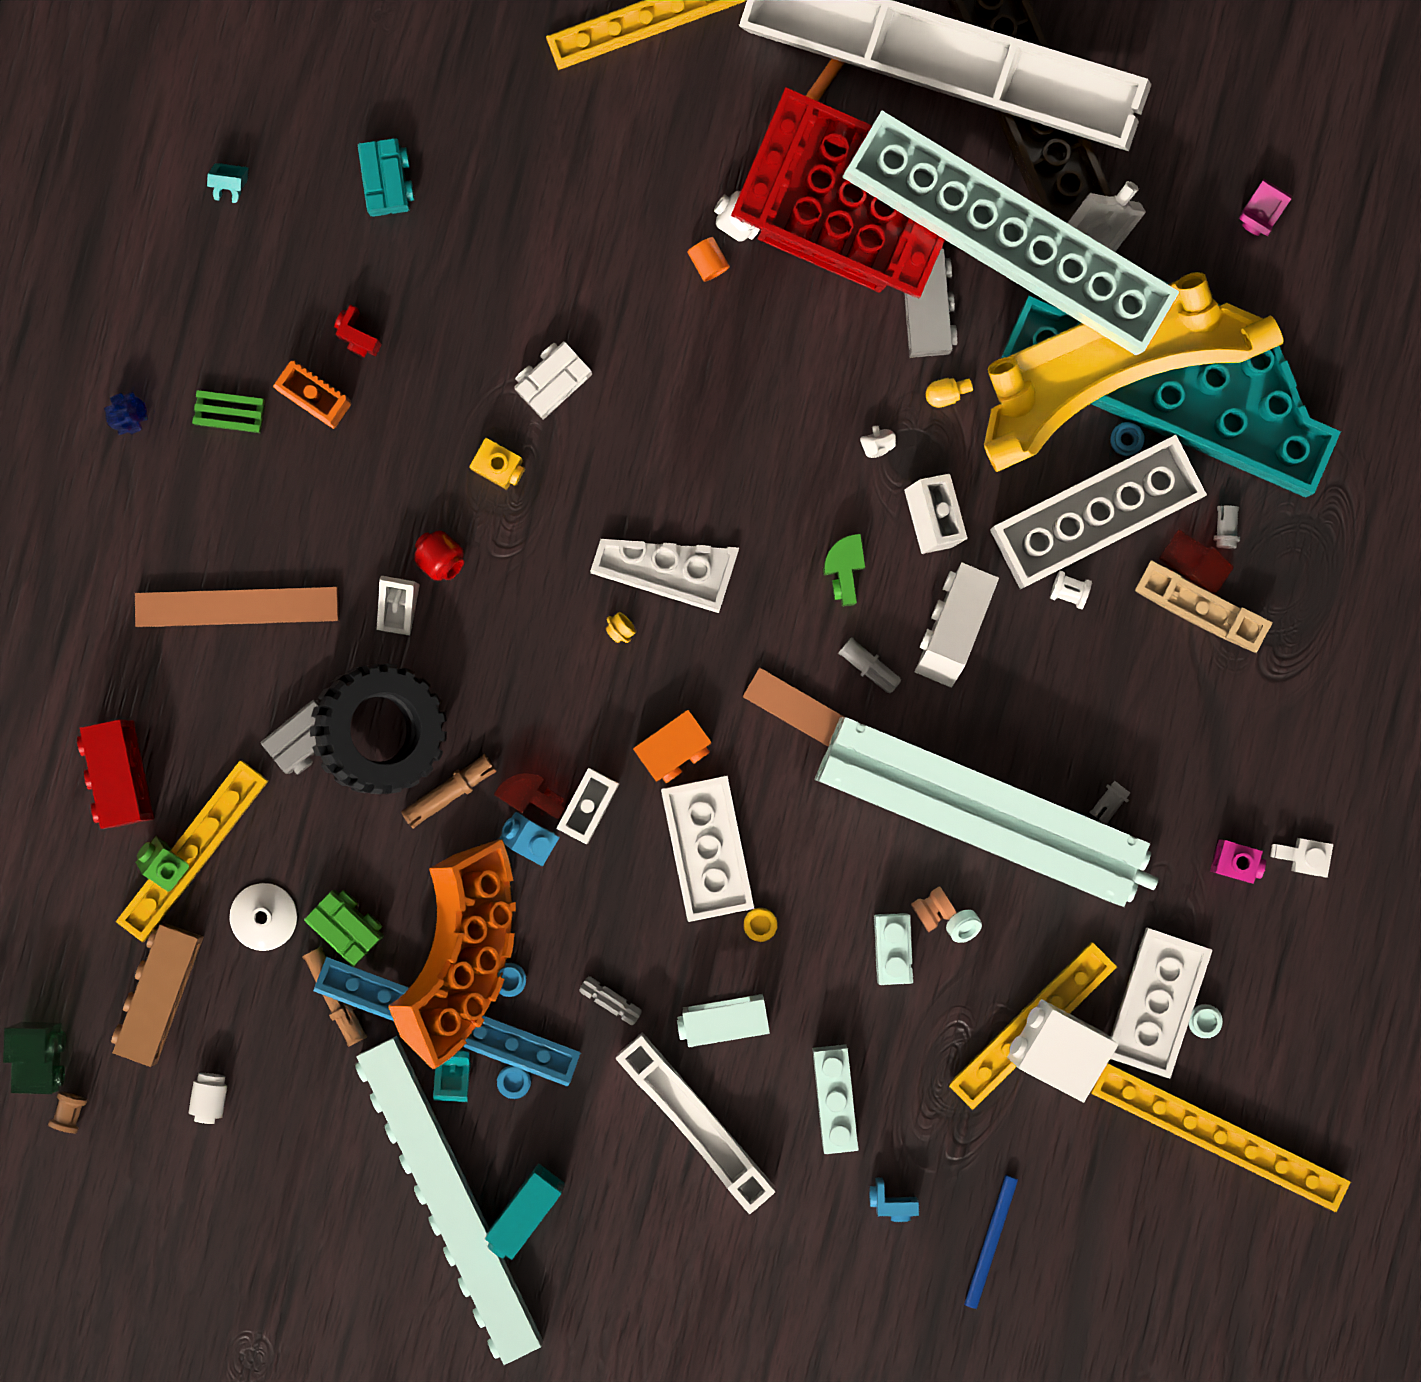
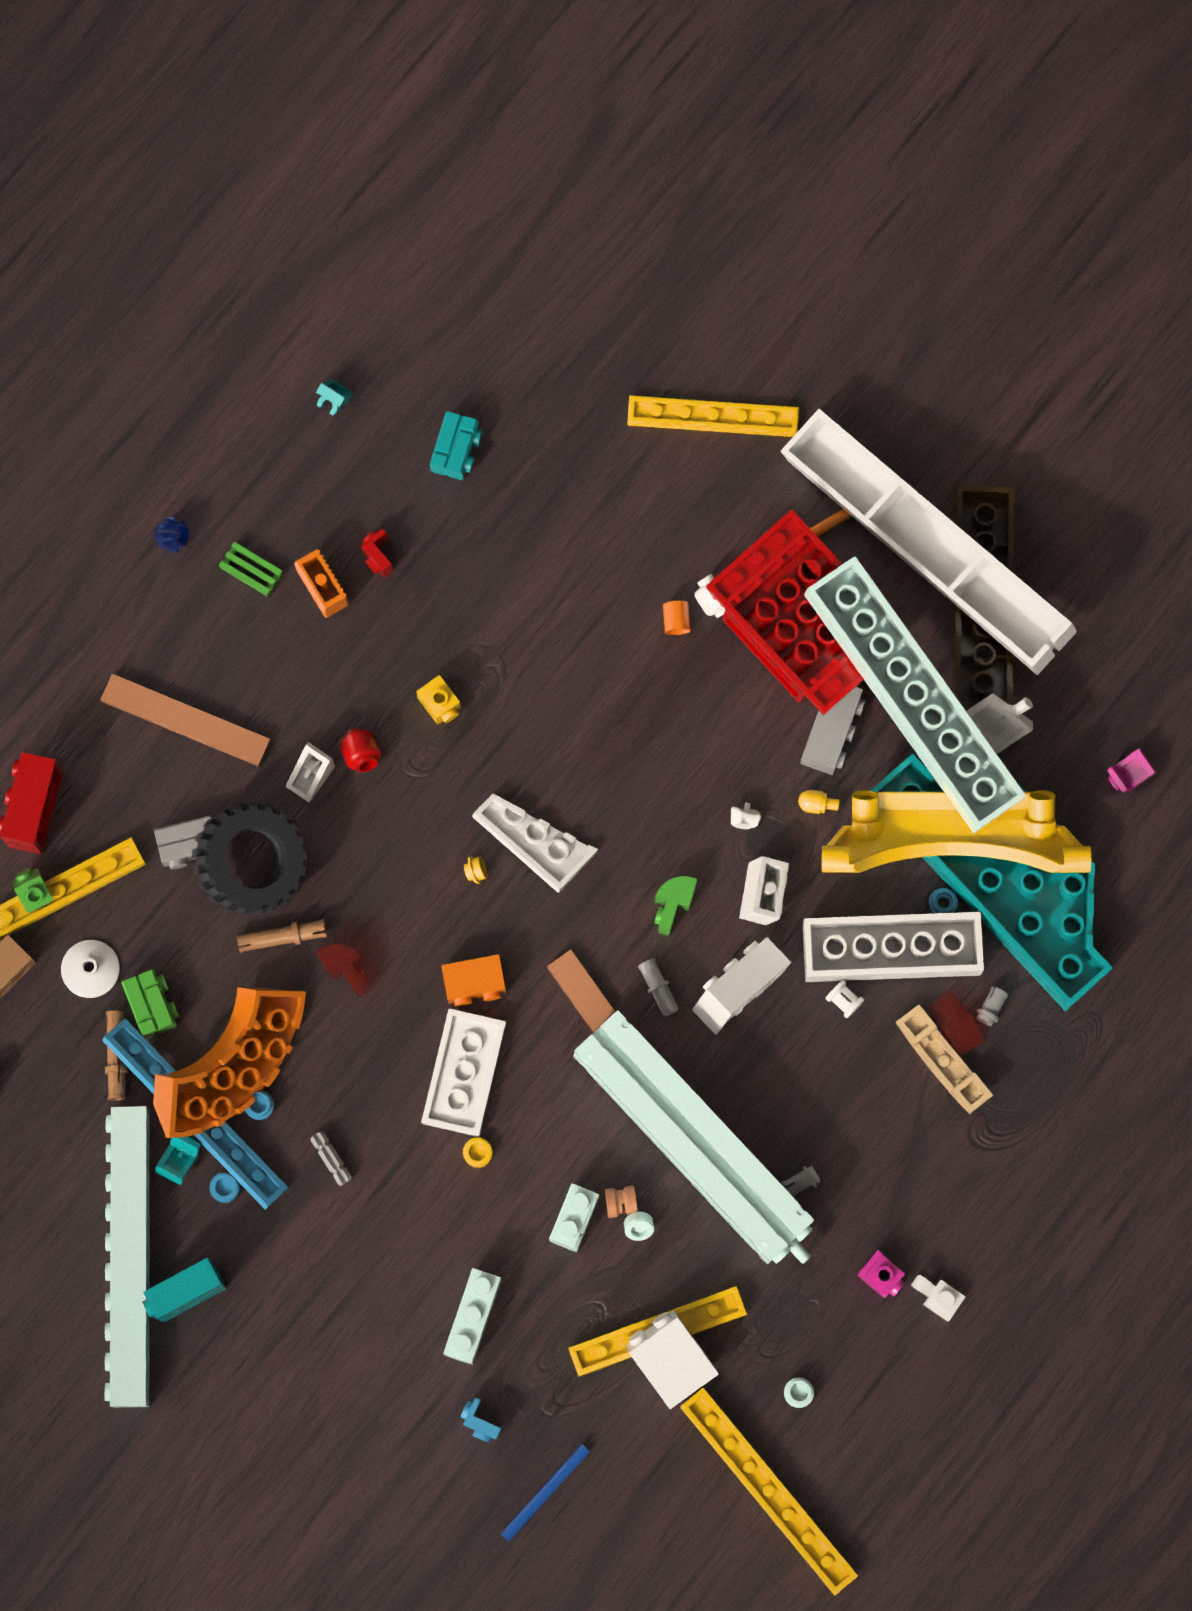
camera: 25 degrees right, 10 degrees down
(528, 838) = (326, 1001): dark azure bracket -> none
(552, 379) = (512, 655): white brick -> none
(588, 806) = (385, 994): white brick -> none
(696, 1122) = (353, 1283): white arch -> none
(723, 1020) = (413, 1211): light aqua window -> none
(1158, 1002) = (767, 1359): white plate -> none

